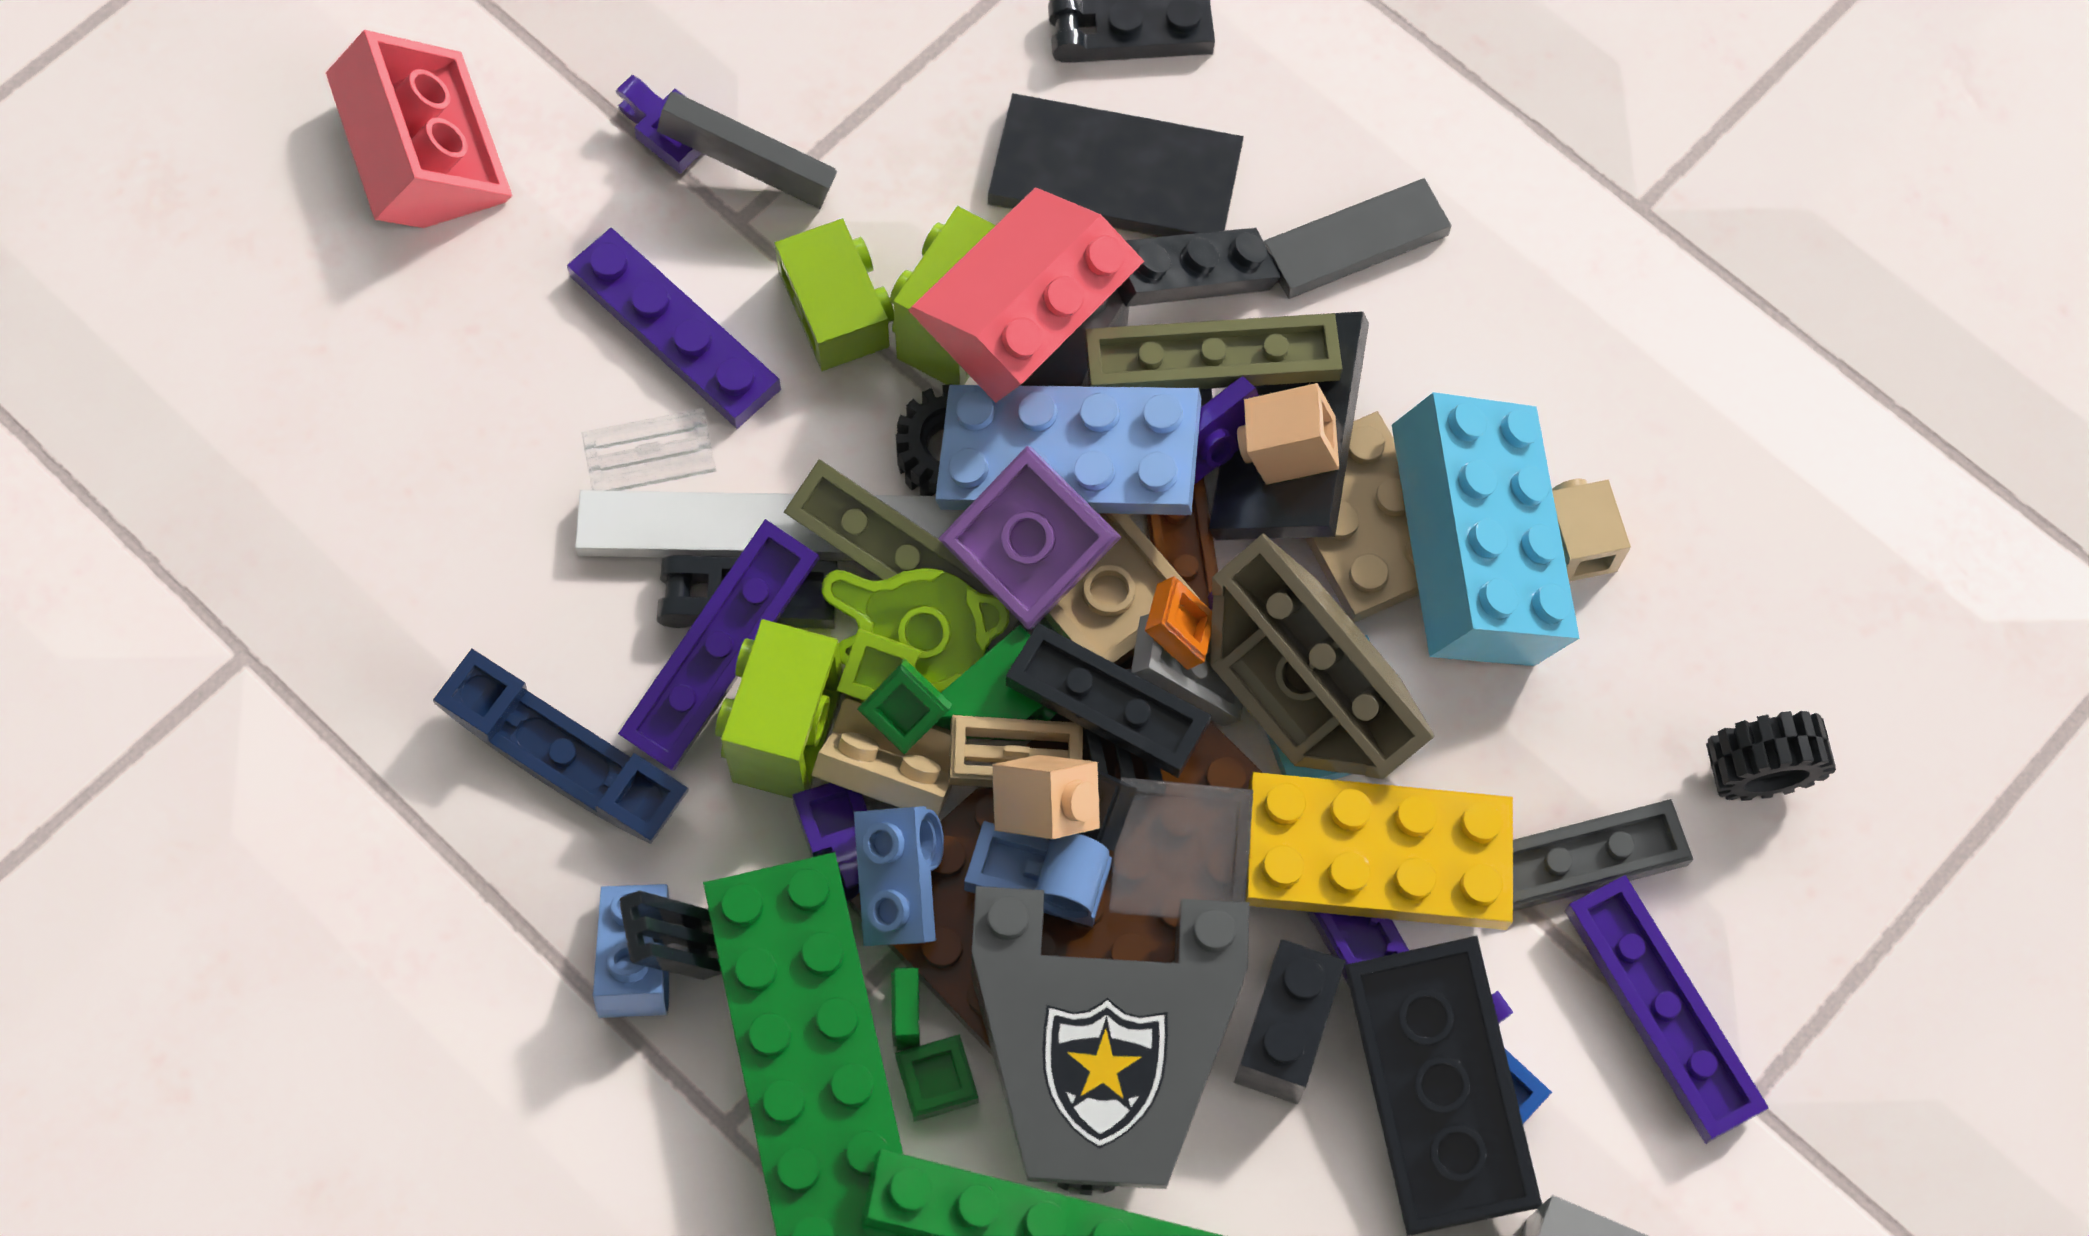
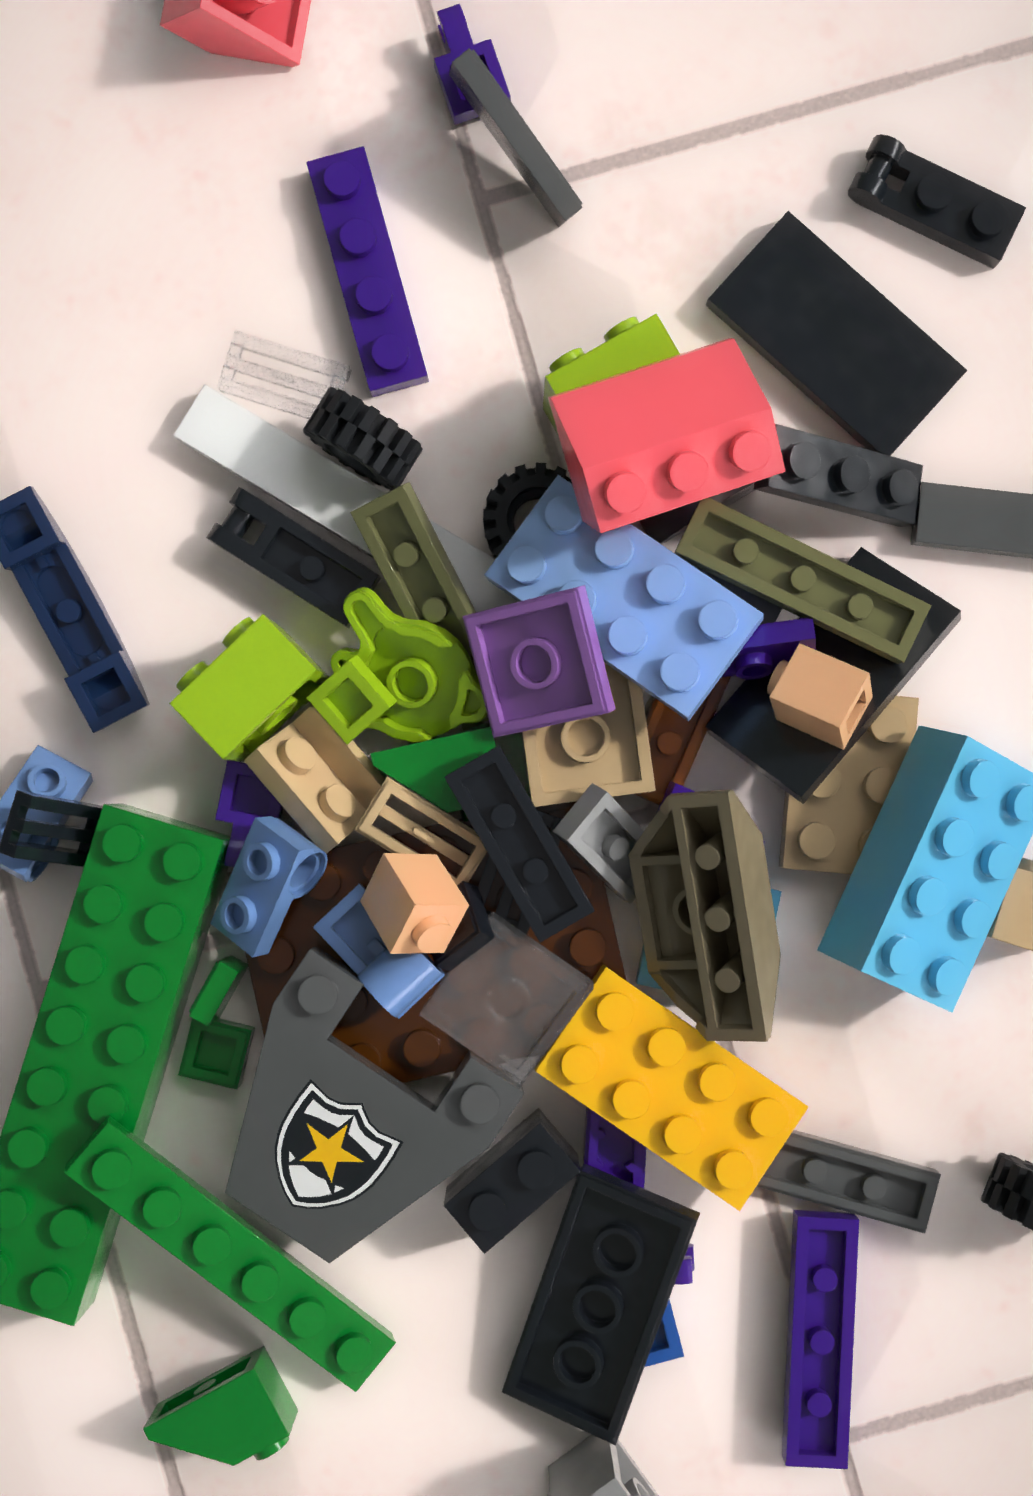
camera: 30 degrees right, 20 degrees up
(706, 658) = (251, 587): dark purple plate -> none
(755, 450) = (362, 438): none -> black tyre
(834, 294) = (516, 320): lime brick -> none
(904, 707) = (351, 747): green tile -> none
(1180, 622) = (619, 812): orange tile -> none

